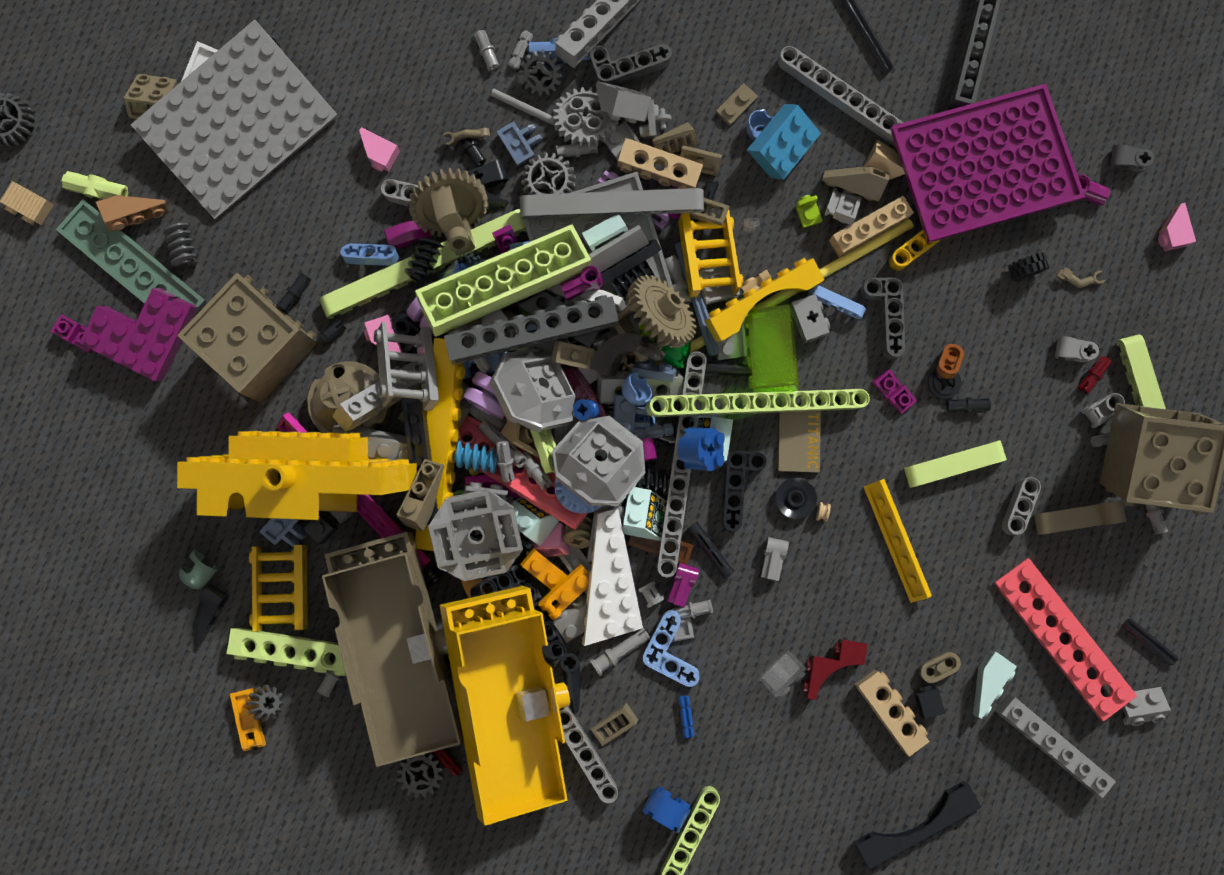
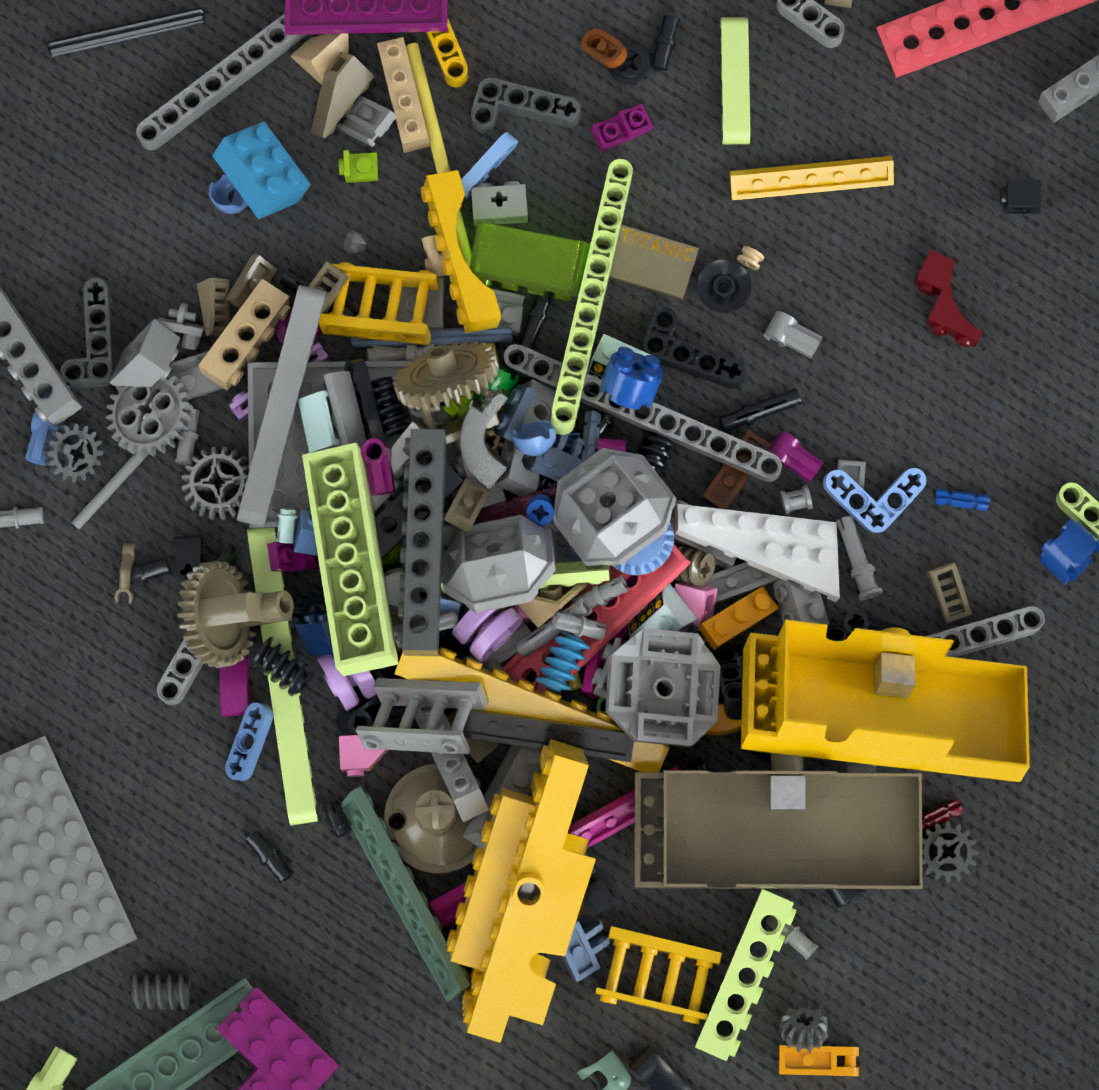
camera: 70 degrees left, 5 degrees down
(126, 210) = (91, 1054): medium nougat slope -> none
(247, 338) = (322, 917): dark tan piece -> none
(297, 385) = (406, 898): none -> sand green plate
(379, 150) = (110, 694): bright pink slope -> none
(421, 496) = (594, 739): dark tan slope -> none
(516, 144) = (155, 512): sand blue hinge -> none
(520, 50) = (29, 473): light grey axle -> none
(527, 233) = (286, 525): none -> light aqua pin
(565, 592) = (762, 599): light orange plate -> none
(644, 514) = (694, 477): light aqua slope -> none
(694, 609) = (830, 451): light grey axle -> none
(736, 104) = (189, 217): dark tan plate -> none
(782, 673) = (939, 365): clear brick -> none
(908, 742) = (986, 266): tan brick -> none
(939, 668) = (982, 173): dark tan plate -> none
(991, 678) = (1010, 113): light aqua slope -> none

